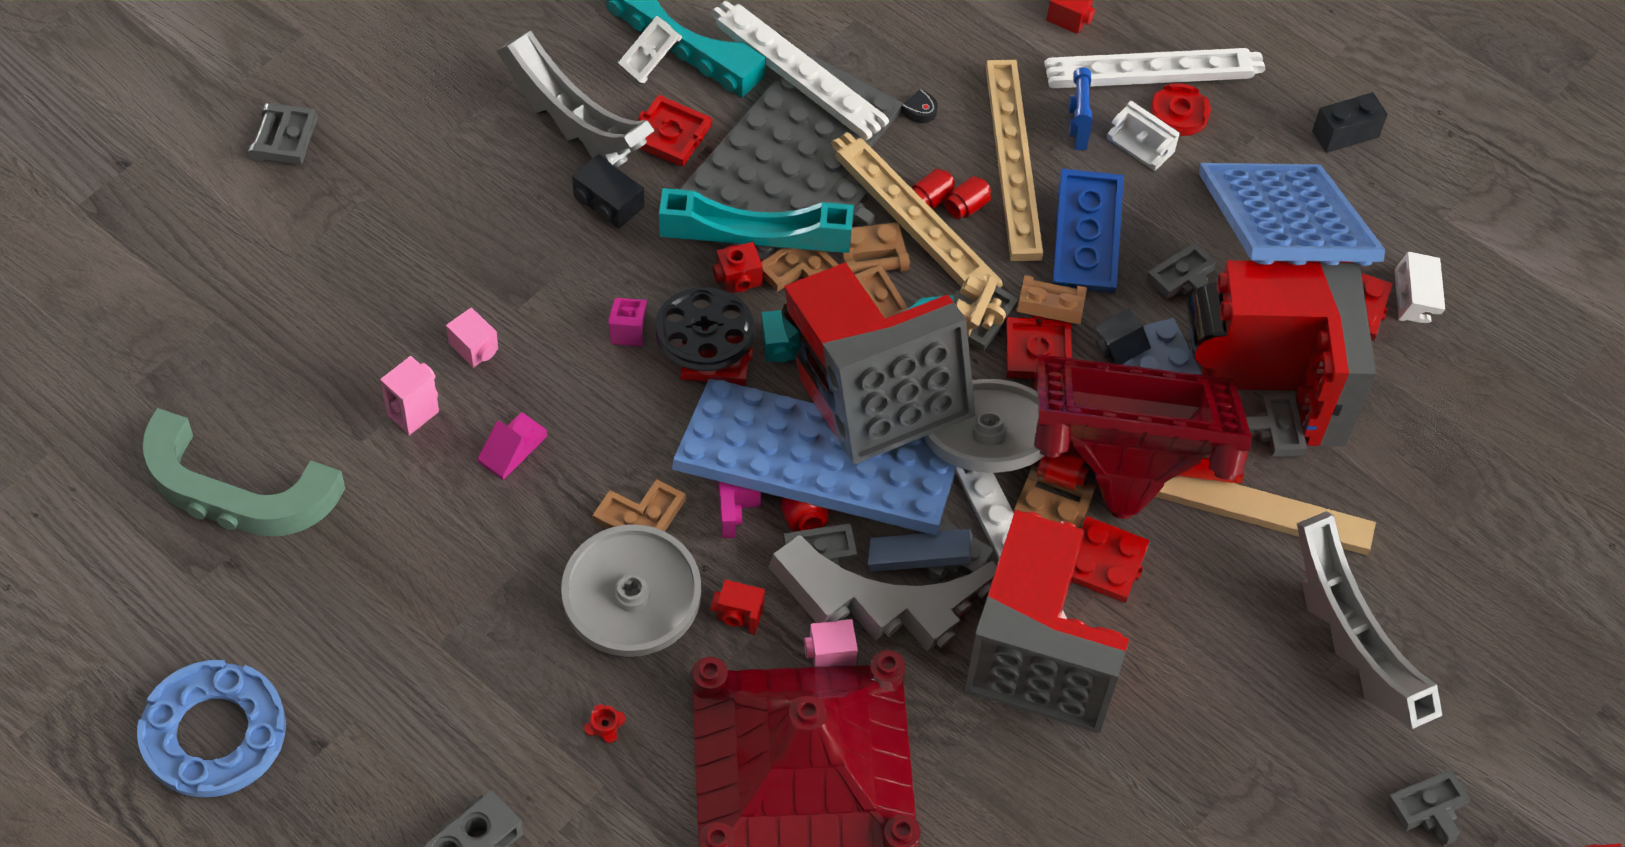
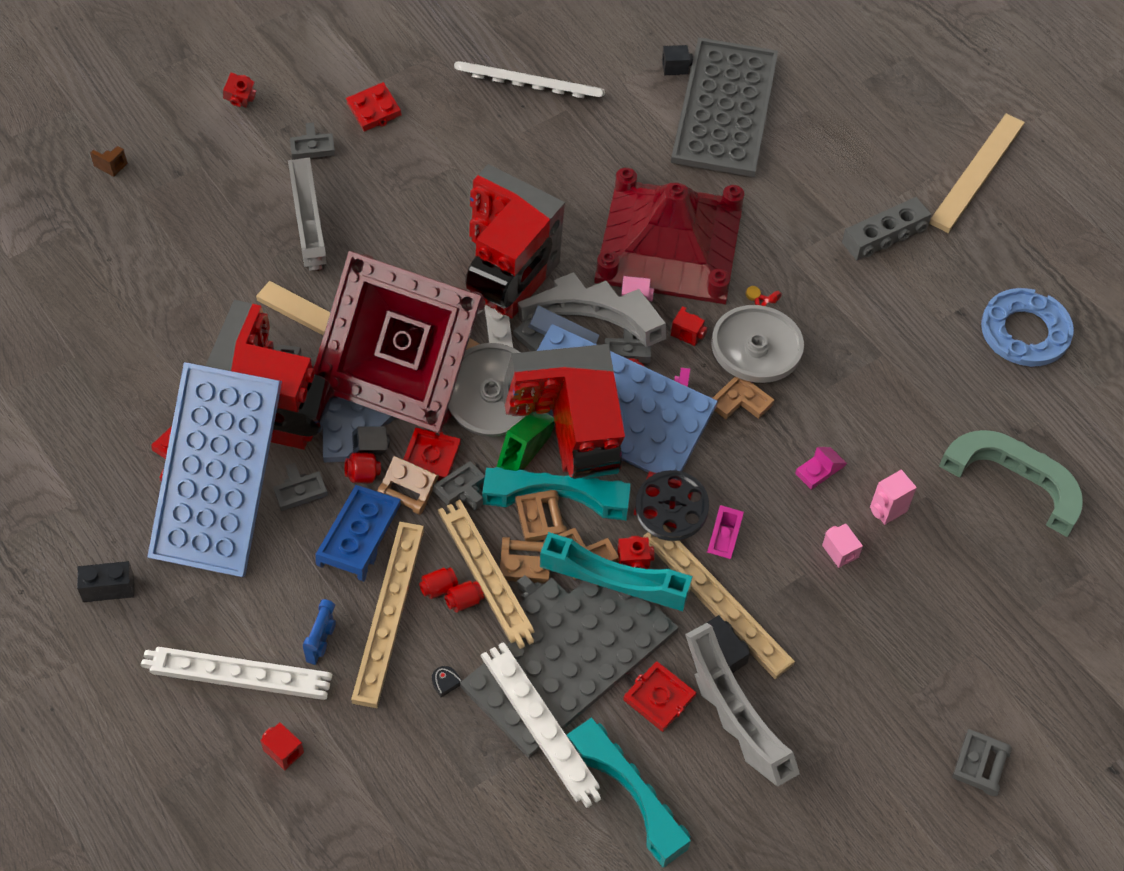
camera: 165 degrees left, 0 degrees up
(605, 713) = (789, 280): red plate -> none
(606, 242) = (722, 603): none -> tan tile
(649, 49) = (663, 762): white hinge -> none
(651, 698) = (753, 293): none -> piece
(981, 293) = (465, 474): tan hips -> none
(1115, 303) = (362, 468): none -> red head
(1143, 136) = (276, 609): white hinge -> none
(1181, 108) = (232, 634): red tile -> none
(1419, 287) = (132, 440): white hinge -> none

